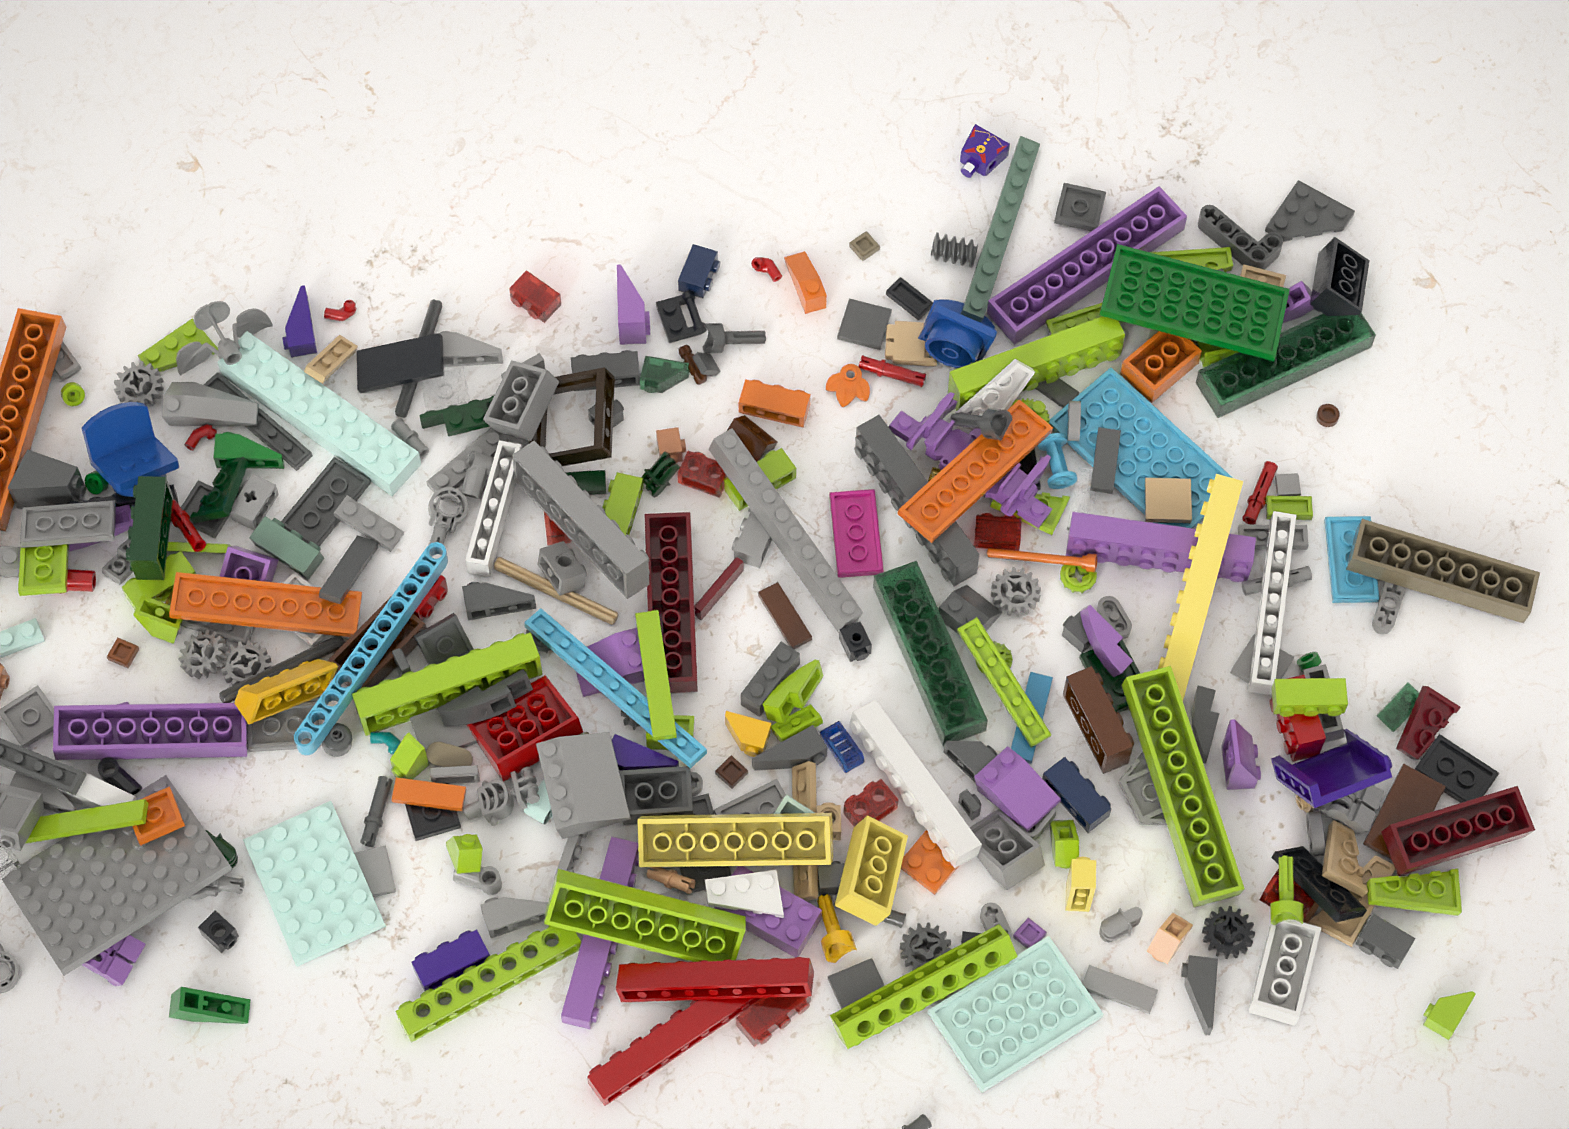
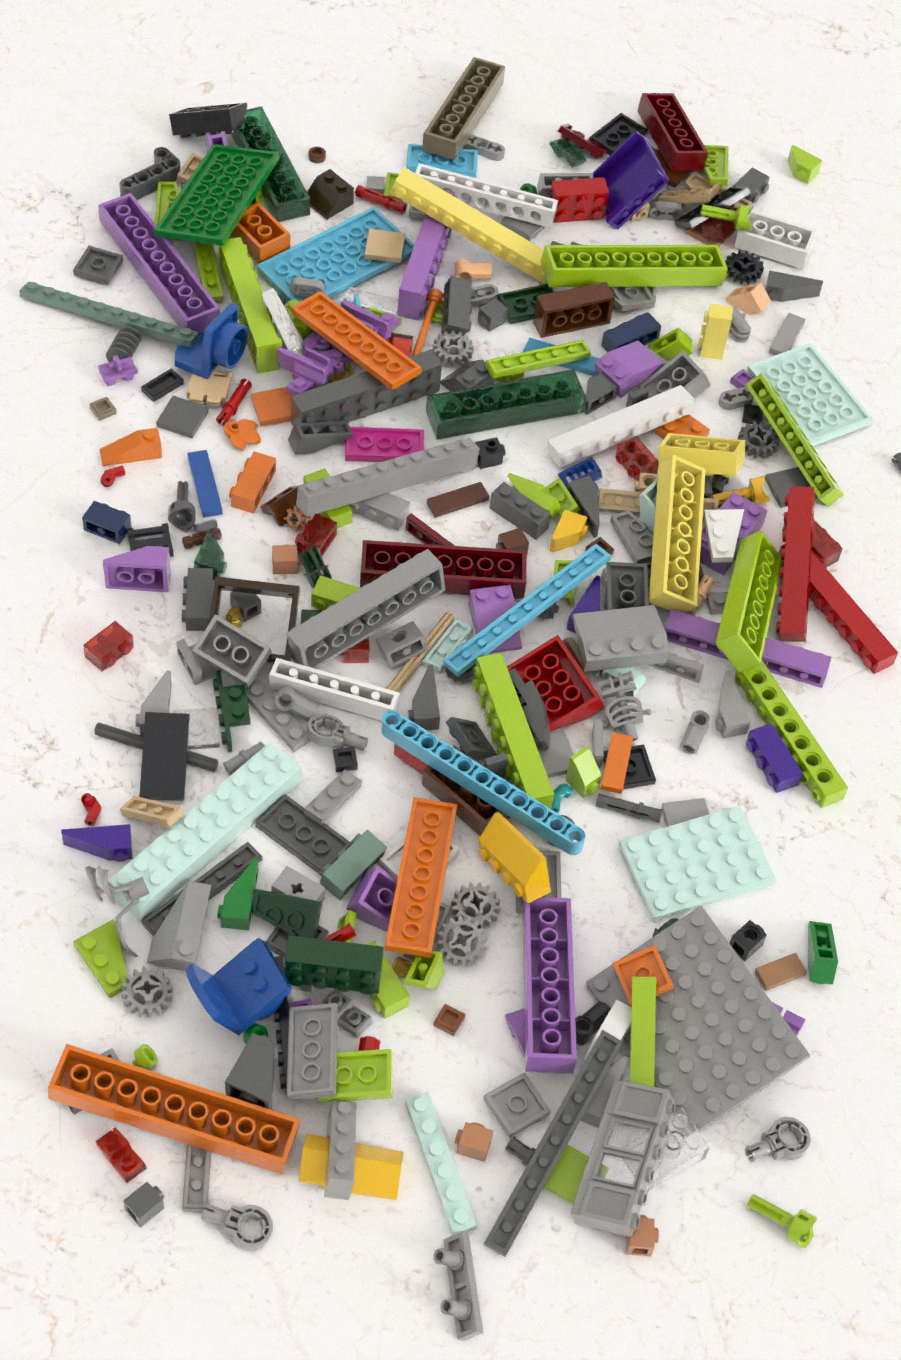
camera: 90 degrees left, 10 degrees down
(187, 967) = (780, 971): none -> medium nougat tile
(197, 434) = (210, 941): red arm -> none
(311, 654) = (487, 873): dark grey axle -> none
(348, 569) = (387, 808): dark grey tile -> none
(415, 530) = (345, 759): none -> black plate
(448, 755) = (577, 741): dark tan tile -> none
(465, 853) = (677, 733): lime slope -> none
(576, 619) = (449, 642): none -> light aqua tile
(583, 406) = (235, 617): none -> clear yellow hose
(655, 675) = (523, 572): lime tile -> none
(720, 674) = (513, 540): none -> reddish brown brick
(770, 358) = (204, 483): none -> blue tile
(850, 460) = (318, 435): none -> dark grey slope
(892, 403) = (272, 406): none -> orange tile
(915, 248) = (118, 369): none -> medium lavender hips
(982, 152) = (28, 317): dark purple torso -> none
(992, 422) = (319, 317): dark grey piece -> none
(1076, 587) = (457, 306): none -> dark grey brick
(1104, 641) = (509, 293): medium lavender slope -> none
(1105, 460) = (344, 276): dark grey tile -> none
(1152, 600) = (470, 271): none -> light nougat piece
(1239, 758) = (611, 229): medium lavender slope -> none
(1251, 434) = (330, 194): none -> dark brown slope
(1308, 214) = (133, 138): dark grey plate -> none
(1309, 696) = (575, 175): lime brick -> none

